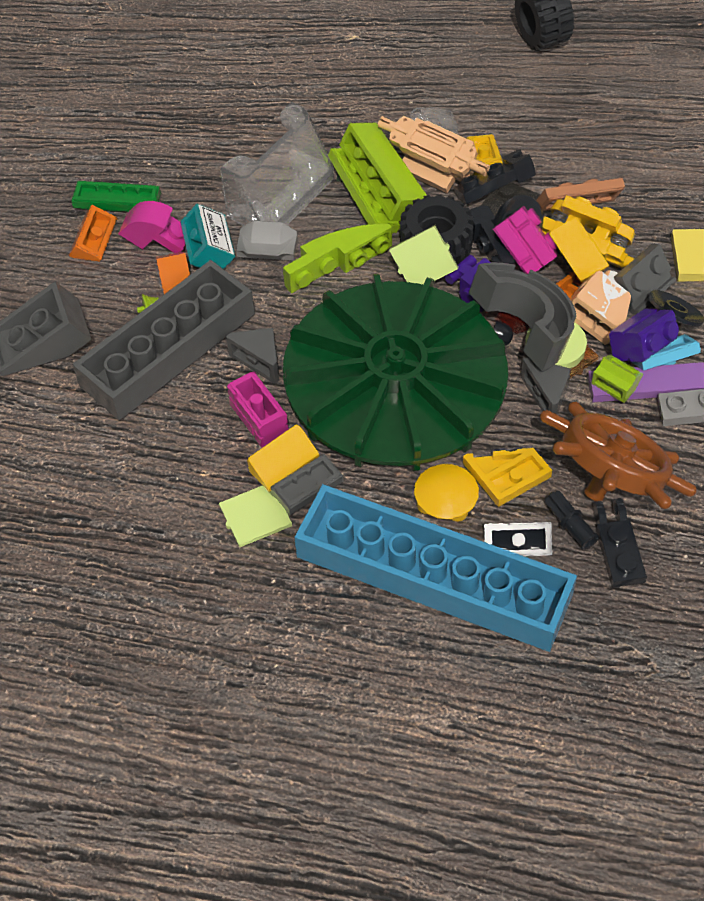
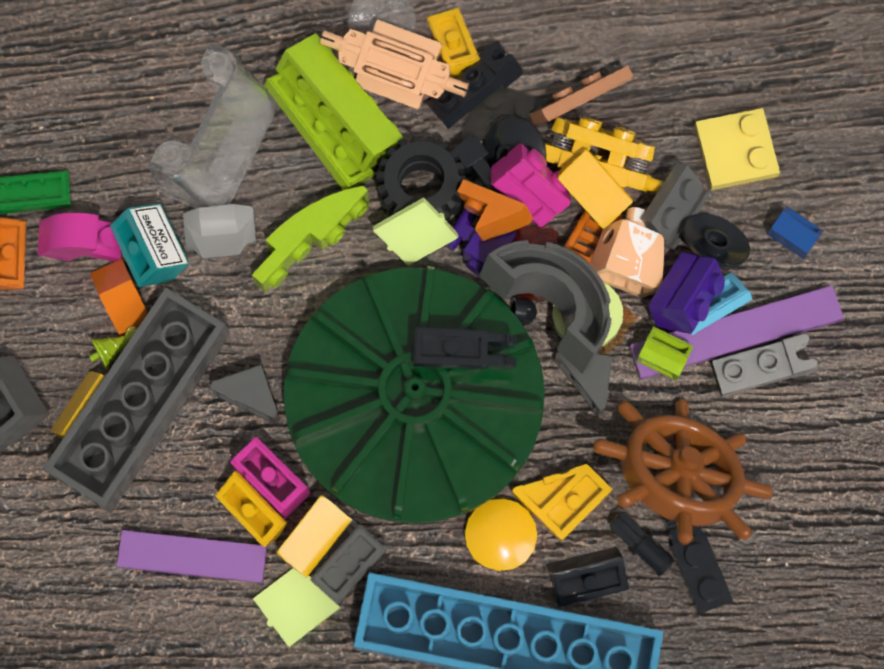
camera: 15 degrees left, 20 degrees up
(177, 462) = (192, 556): none -> medium lavender tile
(235, 429) = (251, 509): none -> yellow slope
(443, 330) = (461, 349): none -> black hinge
(492, 245) = (497, 212): none -> orange slope

